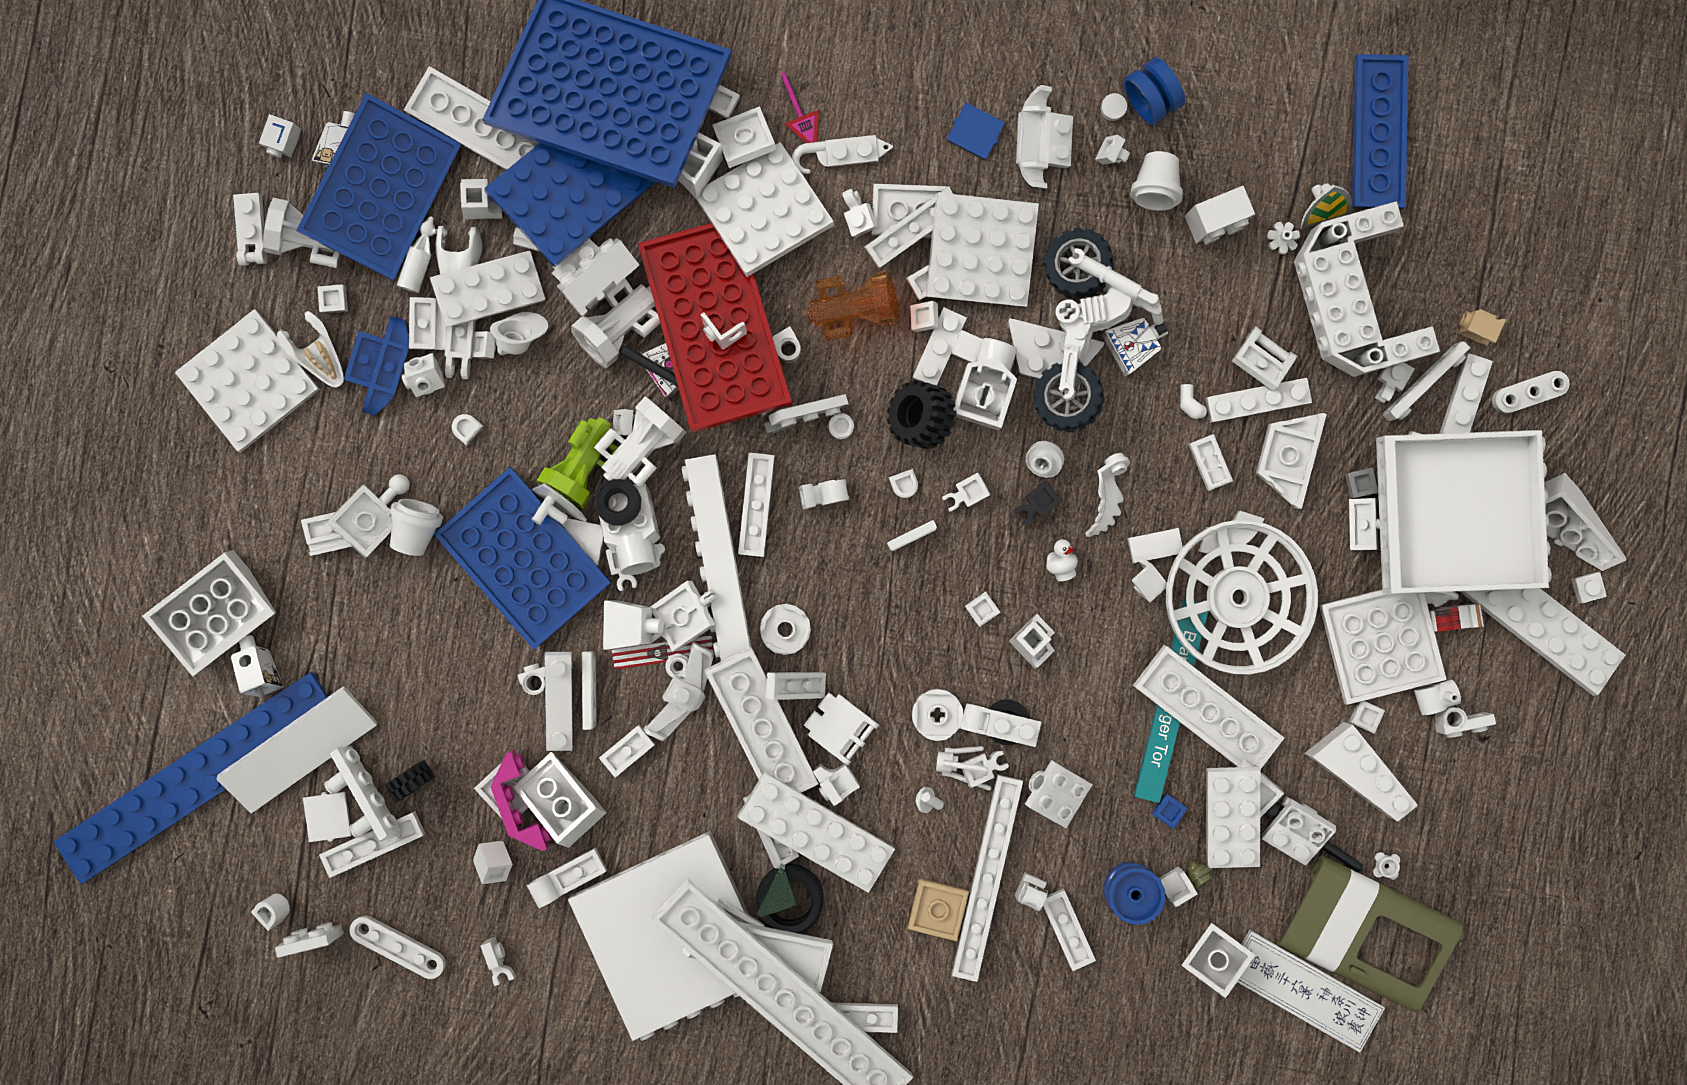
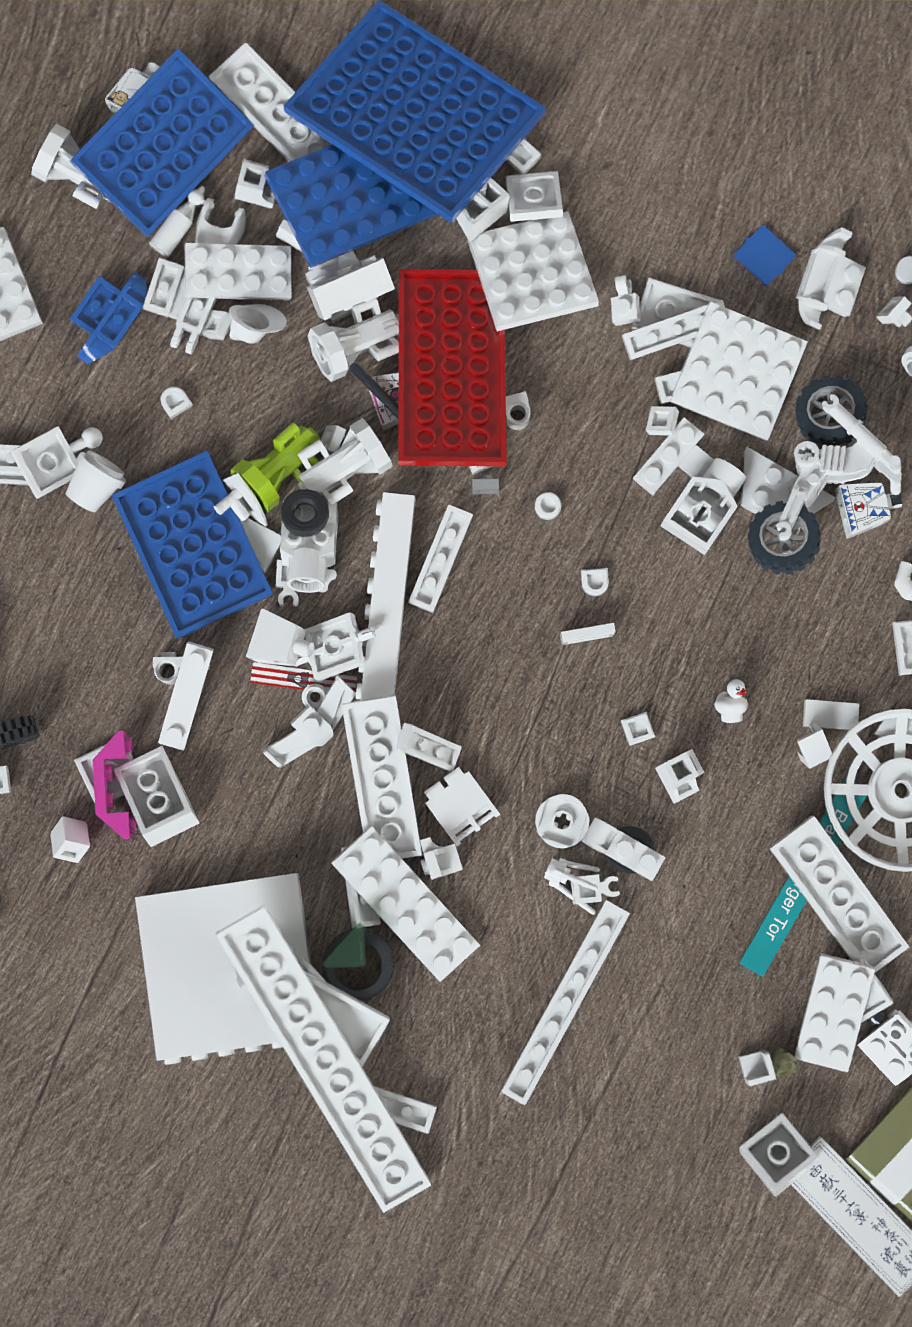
camera: 20 degrees right, 5 degrees down
(249, 228) = (23, 148): white plate -> none
(279, 137) = (79, 69): white brick -> none
(318, 356) = (51, 291): white animal -> none
(332, 299) = (82, 238): white plate -> none
(423, 375) = (149, 337): white brick -> none
(494, 957) = (42, 934): white plate -> none
(566, 877) = (140, 876): white plate -> none
(589, 689) = (219, 694): white tile -> none
(627, 751) = (238, 766): white plate -> none
(723, 340) = (456, 383): white bracket -> none
(777, 642) = (417, 691): white tile -> none
(805, 126) = (596, 203): piece -> none
(808, 411) = (520, 479): white plate -> none
(823, 493) = (512, 567): white leg -> none
(843, 151) = (628, 238): white plate -> none
(872, 301) = (615, 390): clear orange piece -> none
(926, 800) = (526, 905): white plate -> none
(936, 418) = (631, 514): black tyre -> none
(938, 909) = (506, 1021): tan tile -> none
(970, 490) = (659, 606): white plate -> none
(1031, 891) = (606, 1028): white leg -> none
(1040, 501) = (726, 636): black plate -> none
(1045, 459) = (743, 595): white plate -> none
(1057, 793) = (661, 936): white plate -> none
(1068, 930) = (632, 1079): white plate -> none
(1109, 493) = (799, 648): white plant -> none
(1148, 892) = (723, 1071): blue wheel -> none
(1169, 811) = (771, 988): blue tile -> none

